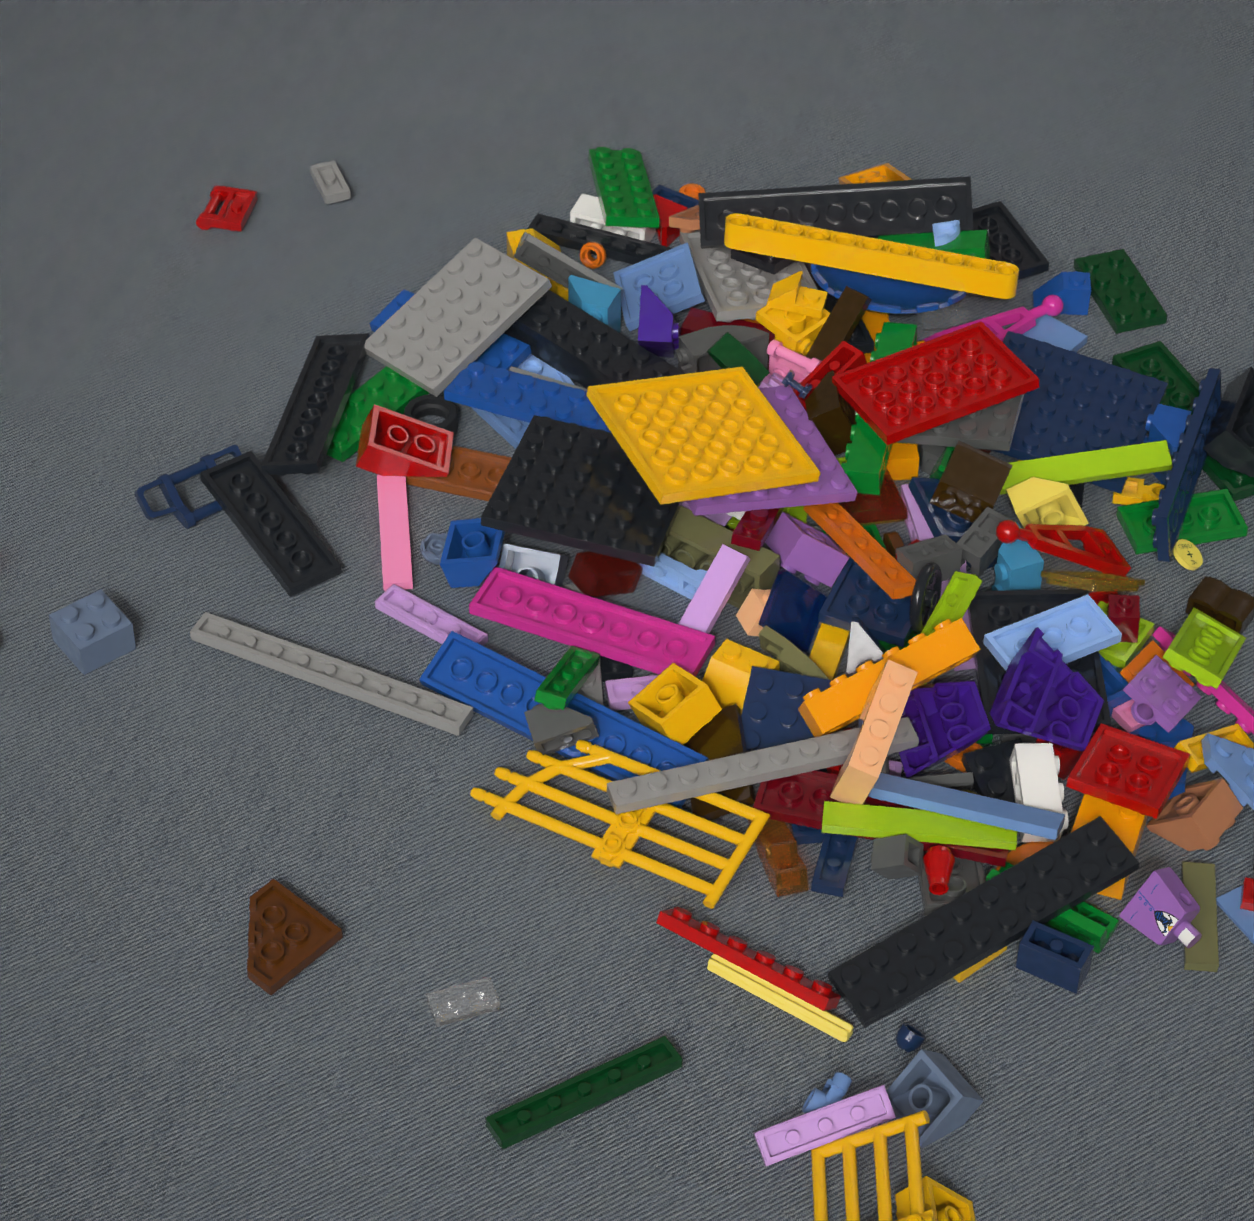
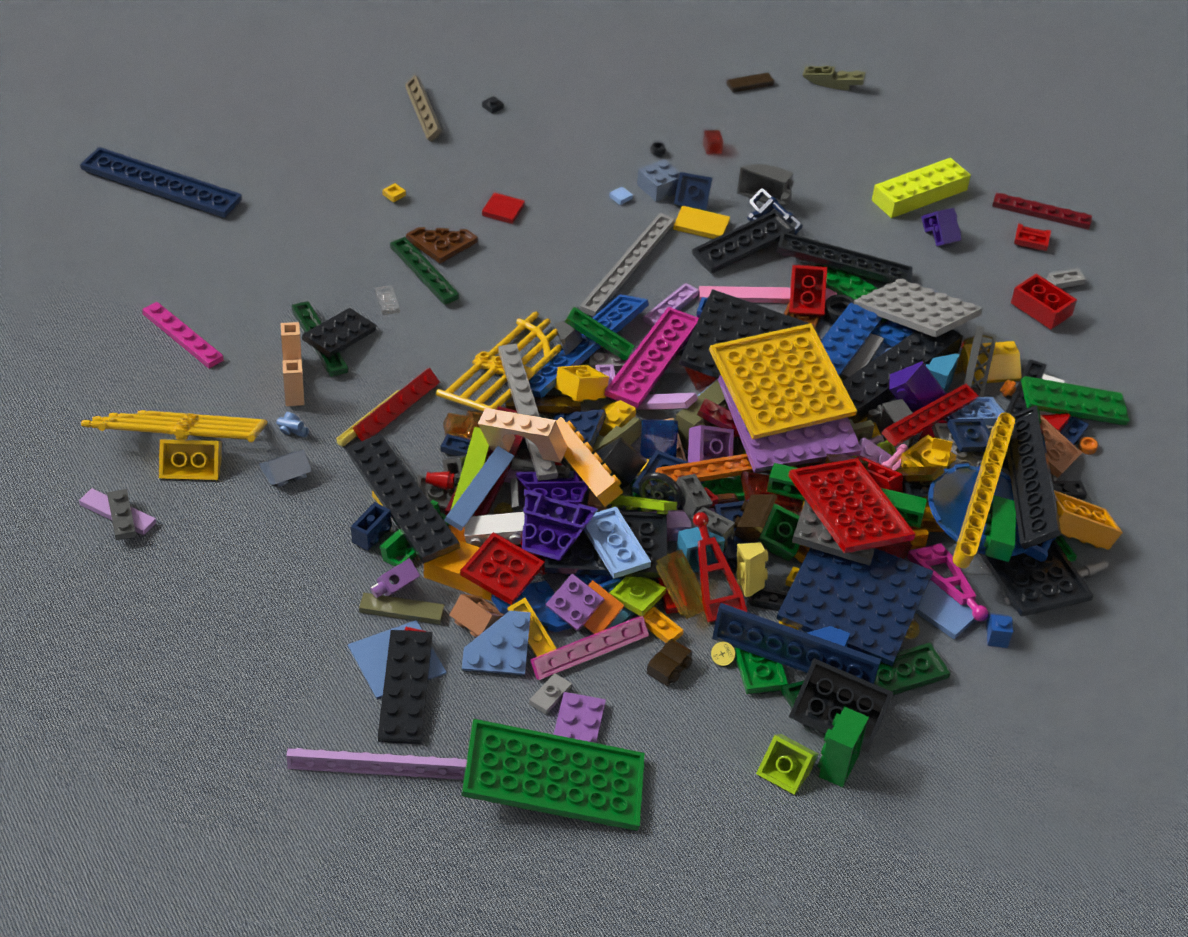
camera: 90 degrees right, 0 degrees up
(108, 316) = (920, 187): none -> neon yellow brick
(117, 477) = (772, 179): none -> dark grey piece
(126, 691) = (621, 195): none -> light blue tile
(130, 1022) = (394, 192): none -> yellow plate
(133, 583) = (693, 191): none -> dark blue plate
(154, 197) = (1042, 211): none -> dark red plate
(168, 856) = (503, 208): none -> red tile
(202, 583) = (701, 222): none -> yellow tile
(218, 288) = (944, 226): none -> dark purple brick
(370, 955) = (424, 270): none -> dark green plate
(398, 202) = (1043, 301): none -> red brick
(574, 1057) = (339, 332): none -> black plate
(719, 310) = (929, 415): none -> red plate
(731, 353) = (881, 422): dark green slope -> none
(735, 1107) = (292, 364): none -> light nougat arch
(738, 276) = (969, 434): none -> dark blue plate
(788, 380) = (853, 453): dark blue piece -> none
(824, 1125) = (273, 419): lavender tile -> none
(909, 1038) = (331, 459): dark blue hinge -> none
(946, 232) = (1009, 524): light blue tile -> none
(1093, 465) = (786, 586): lime tile -> none
(1121, 291) = (1014, 665): dark green plate -> none
(1125, 615) = (637, 585): dark red brick -> none
(1162, 611) = (662, 626): none -> light orange plate
(1204, 648) = (617, 633): lime plate -> none

